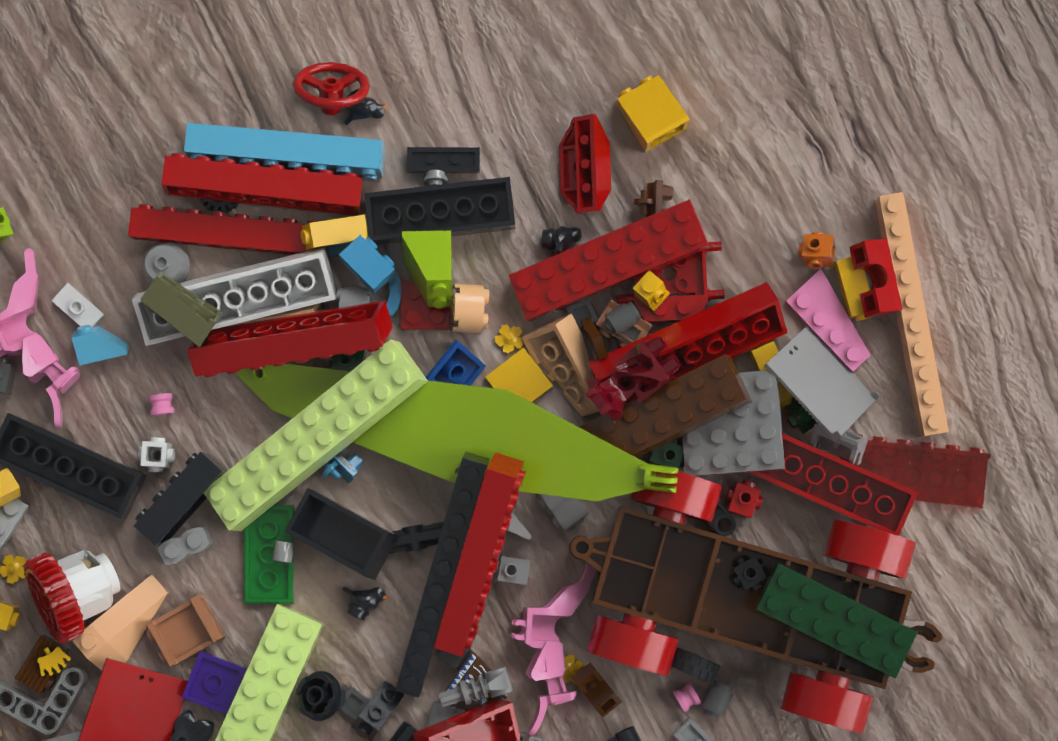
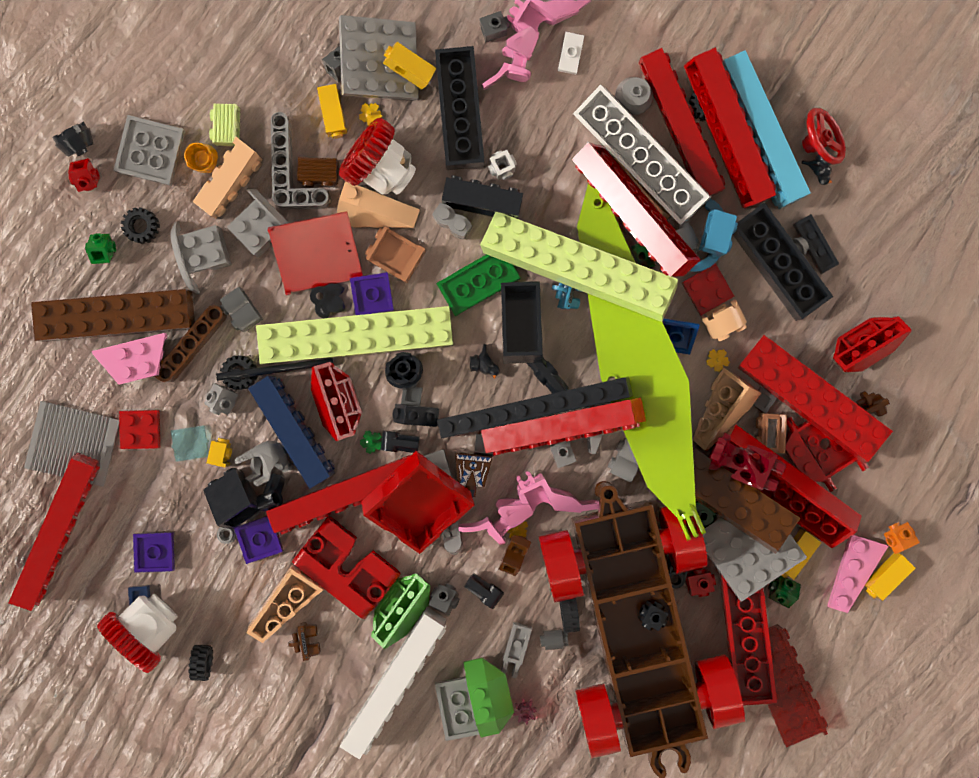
camera: 60 degrees right, 5 degrees up
(53, 660) = (324, 176): yellow piece -> none
(97, 344) = (553, 80): medium azure slope -> none
(161, 404) = (537, 148): bright pink wheel -> none
(181, 308) = (614, 121): olive wedge -> none
(283, 552) = (486, 290): light grey hose -> none
(333, 232) = (725, 196): yellow brick -> none
(430, 265) = (740, 276): lime slope -> none
(495, 683) = (480, 486): light grey piece -> none
(520, 376) = (700, 382): yellow tile -> none
(560, 238) = (807, 355): black animal -> none
(594, 338) = (753, 418): reddish brown tile -> none
(621, 318) = (779, 430): dark grey brick -> none
(651, 291) = (809, 439): yellow brick -> none
(652, 112) = (932, 369): yellow slope -> none
(686, 697) = (544, 618): bright pink wheel -> none
(821, 383) = (811, 592): light grey door -> none
(835, 620) = (659, 699): dark green brick -> none
(848, 446) = (778, 627): light grey hinge -> none
(876, 260) = (918, 582): red arch -> none
(913, 318) = (892, 625): light nougat brick -> none

